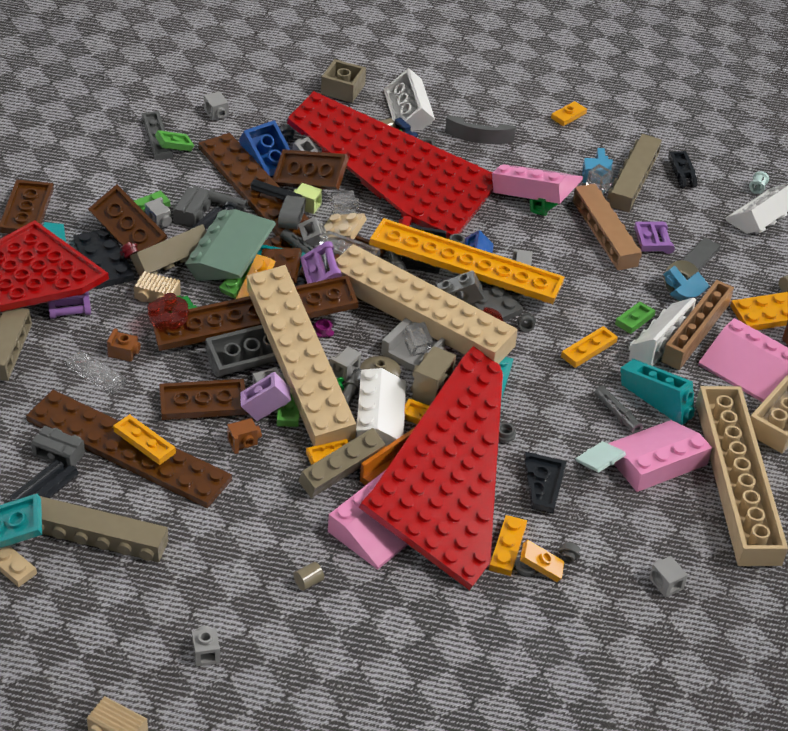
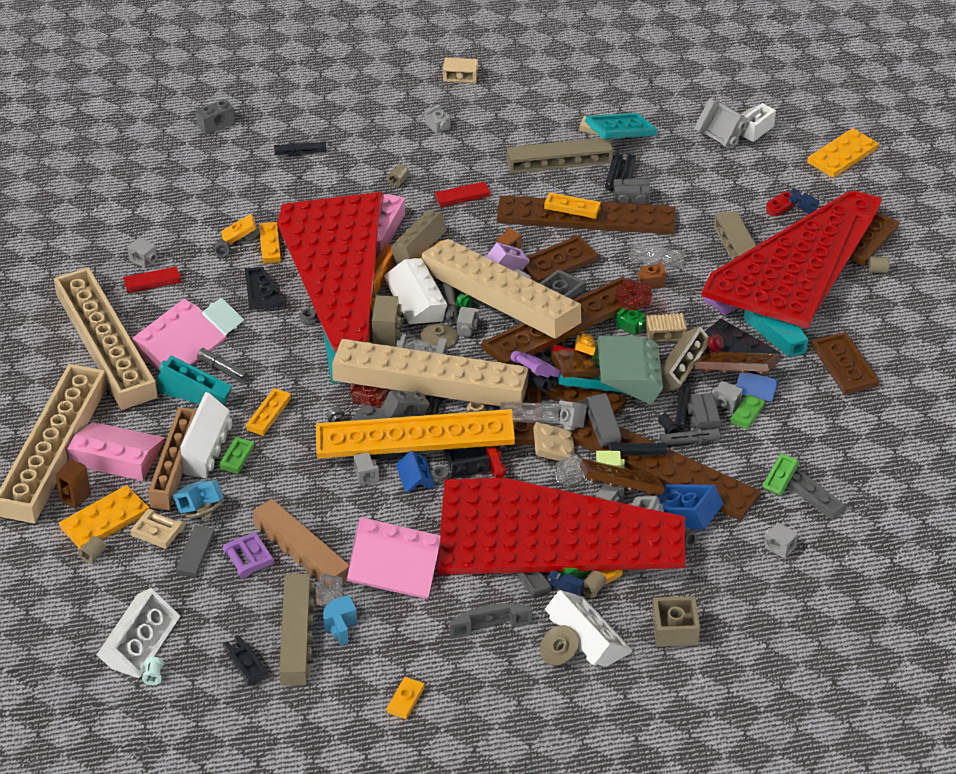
camera: 160 degrees right, 0 degrees up
(247, 526) = (462, 194): none -> red tile
(411, 671) = (300, 148): none -> black pin
(438, 98) = (554, 640): none -> dark tan dish
(664, 544) = (151, 279): none -> red tile
(730, 276) = (154, 532): none -> tan plate

